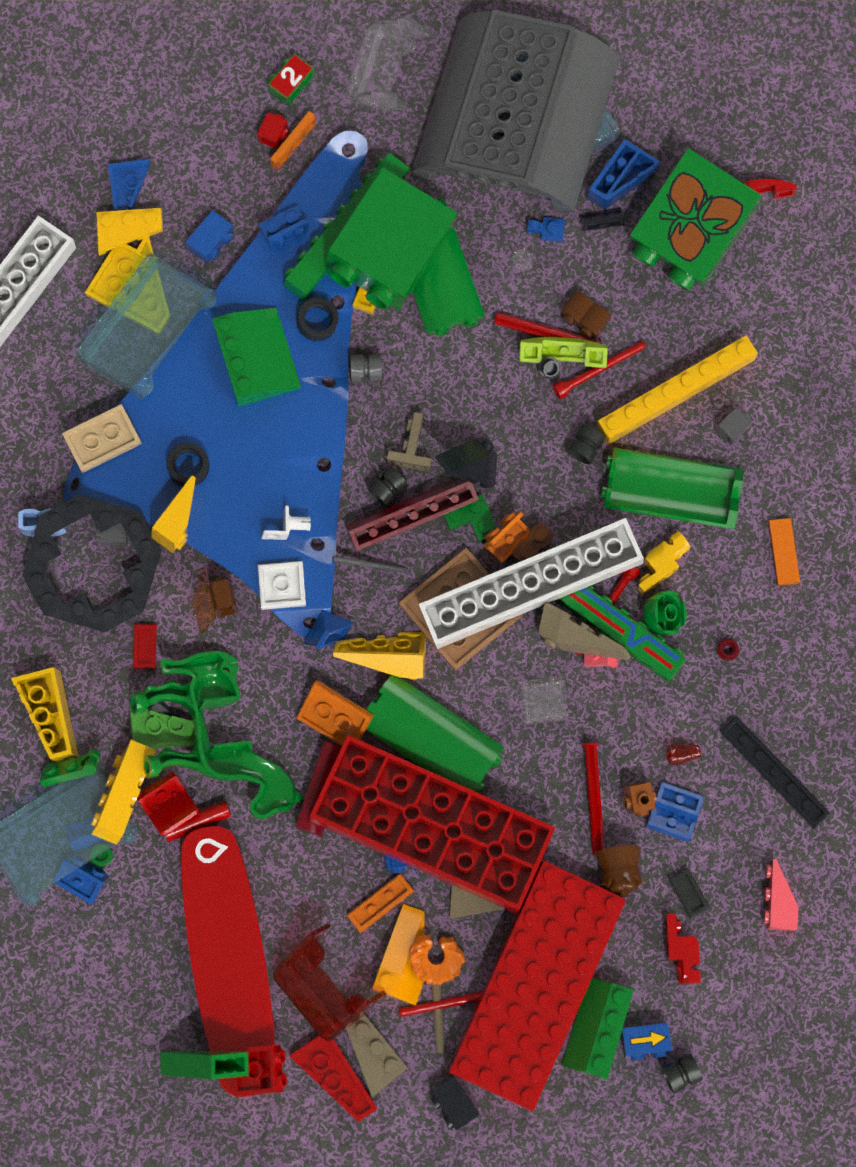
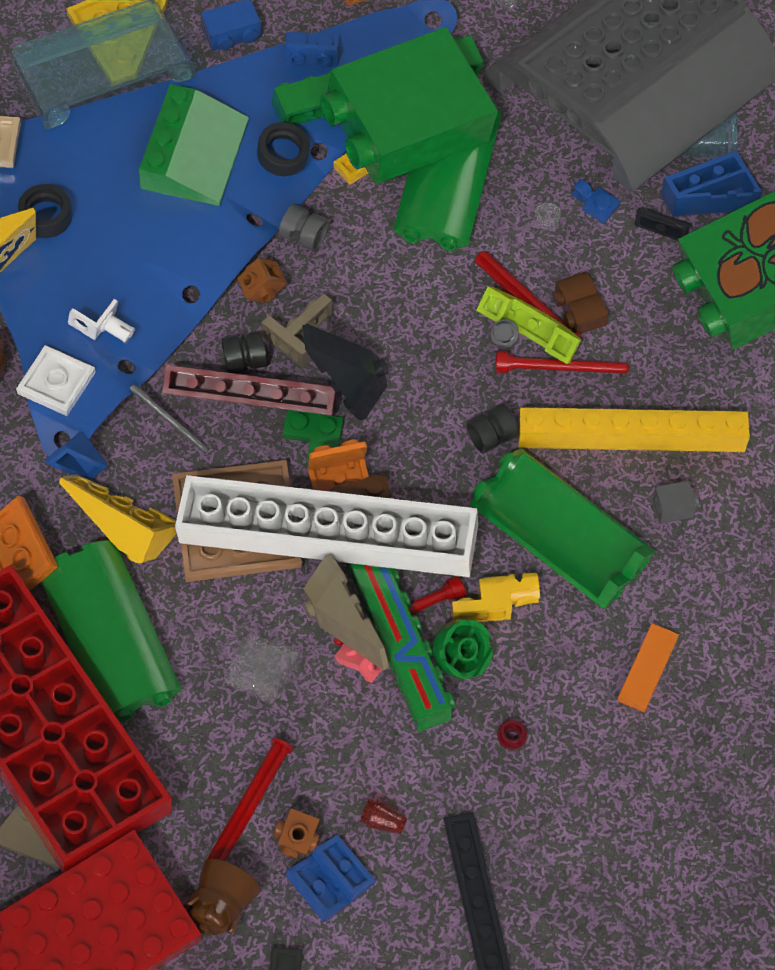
camera: 30 degrees right, 15 degrees down
(365, 426) = (262, 280): none -> dark orange brick

